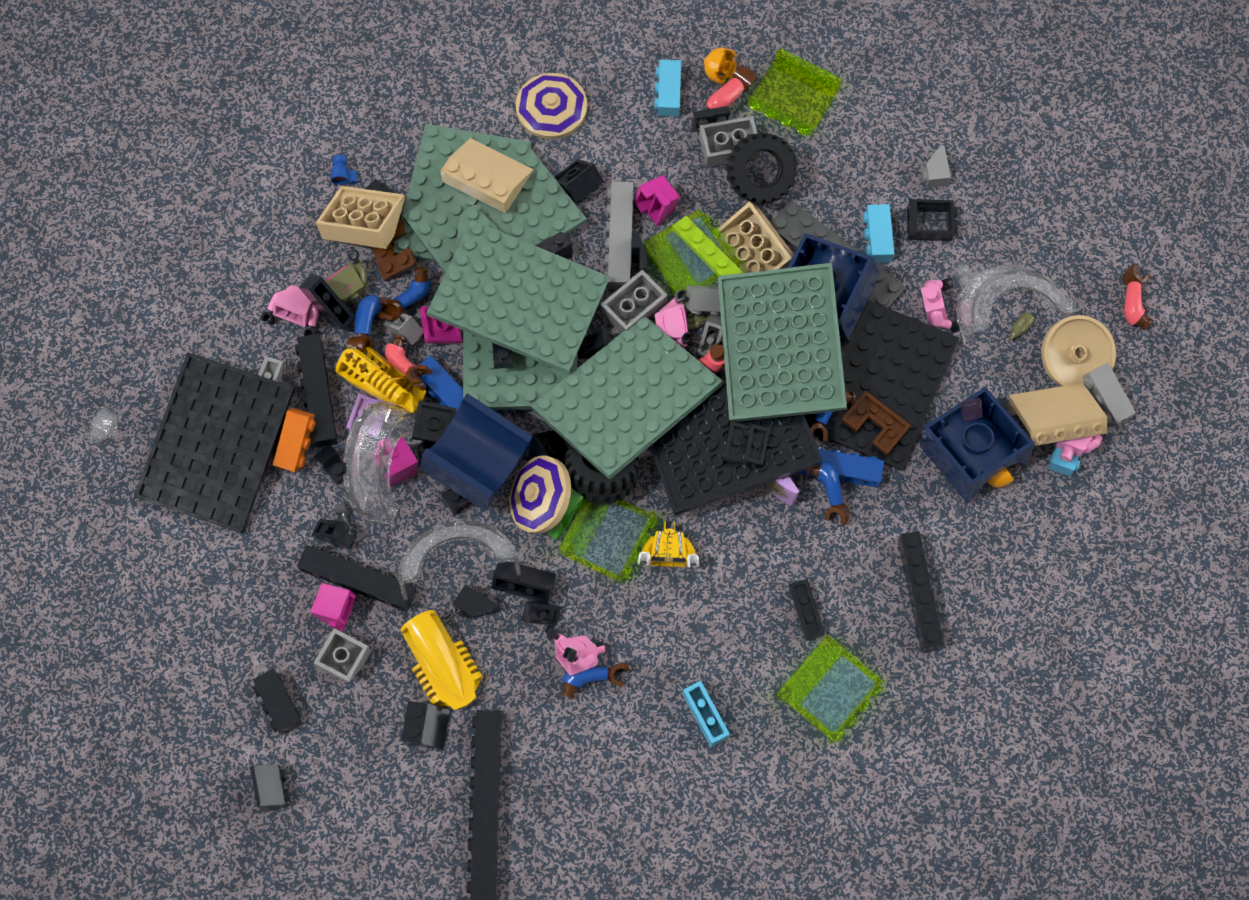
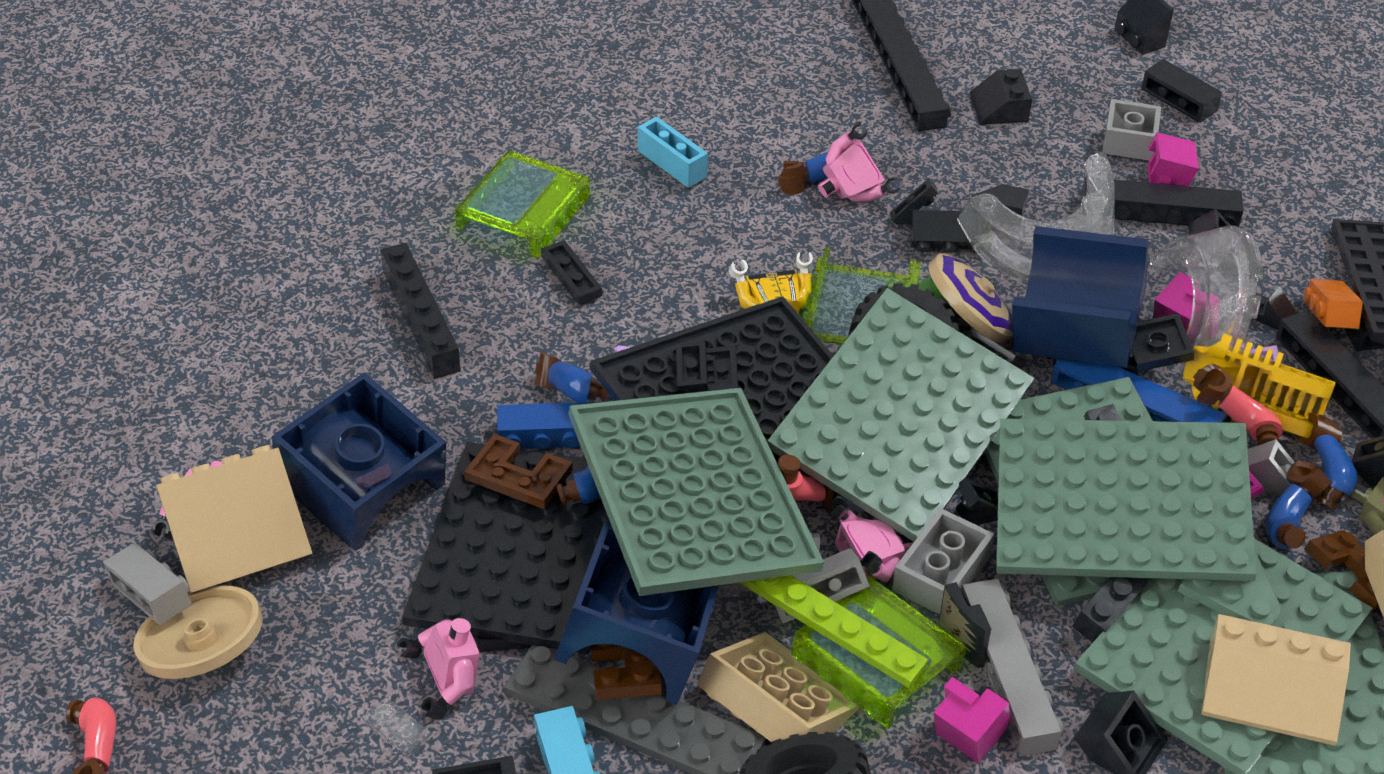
camera: 165 degrees right, 25 degrees down
(442, 664) = (1011, 148): yellow connector -> none
(988, 284) = (327, 710): clear windscreen -> none
(1021, 325) = (297, 671): olive piece -> none

